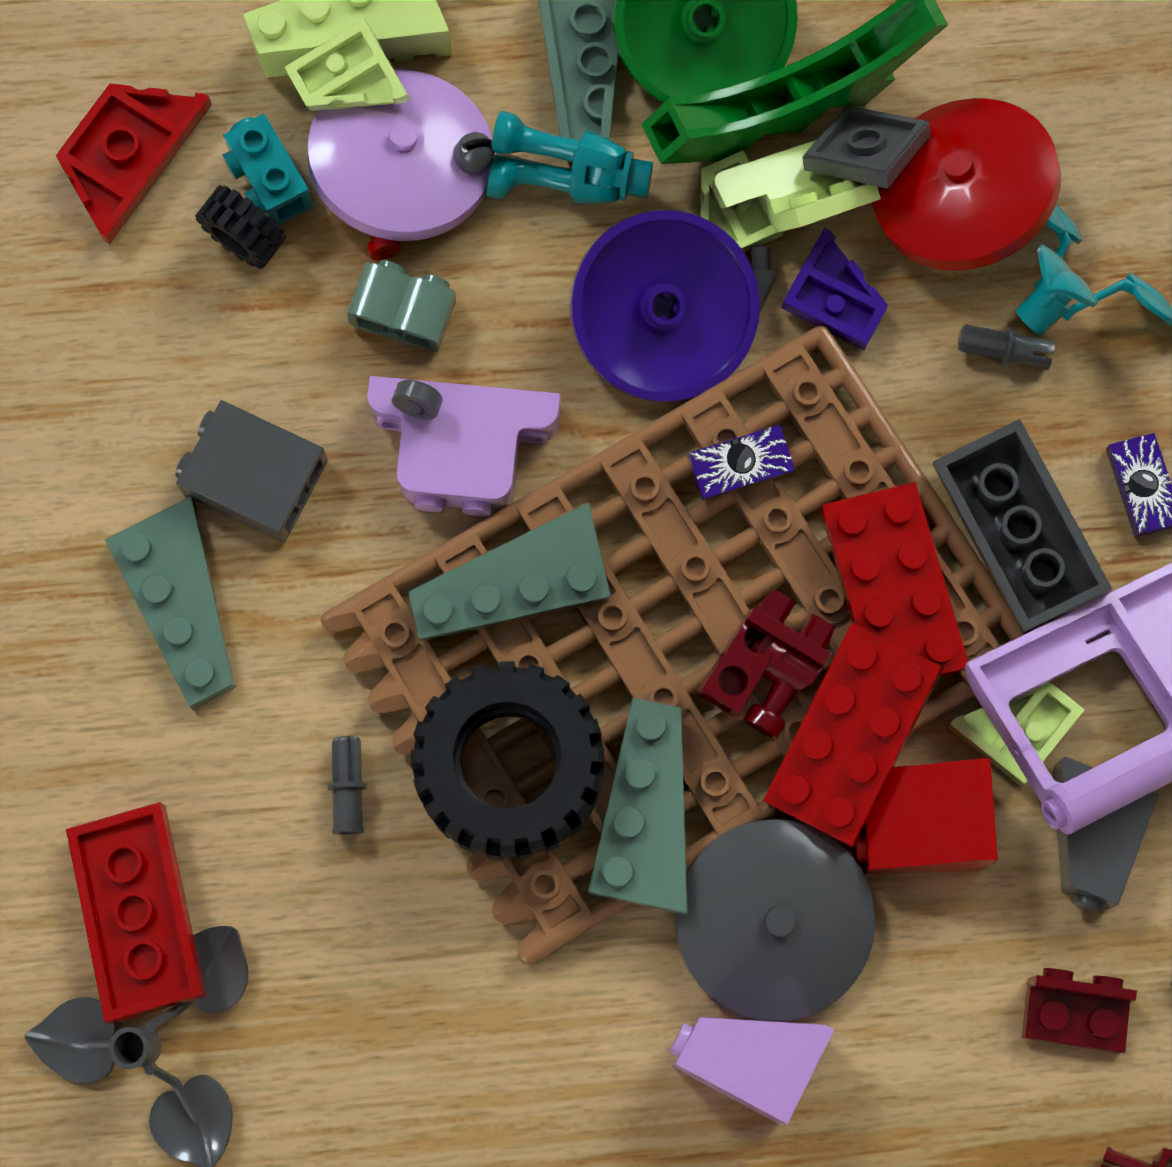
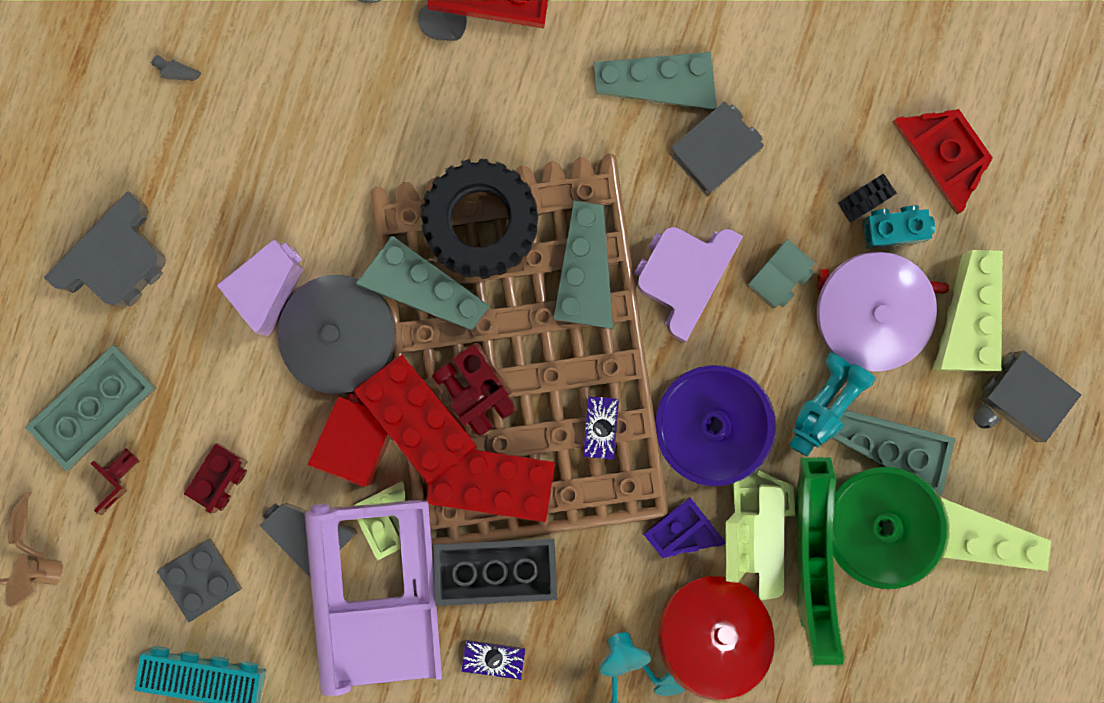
camera: 110 degrees right, 10 degrees up
(347, 73) = (937, 297): yellowish green wing -> none
(347, 786) = (512, 131): dark grey axle -> none
(417, 399) = (714, 255): dark grey tile -> none
(475, 159) = (851, 352): dark grey hinge -> none
(763, 273) = (714, 494): dark grey bar -> none
(866, 146) = (763, 588): dark grey plate -> none
(1005, 346) = (609, 617): dark grey axle -> none

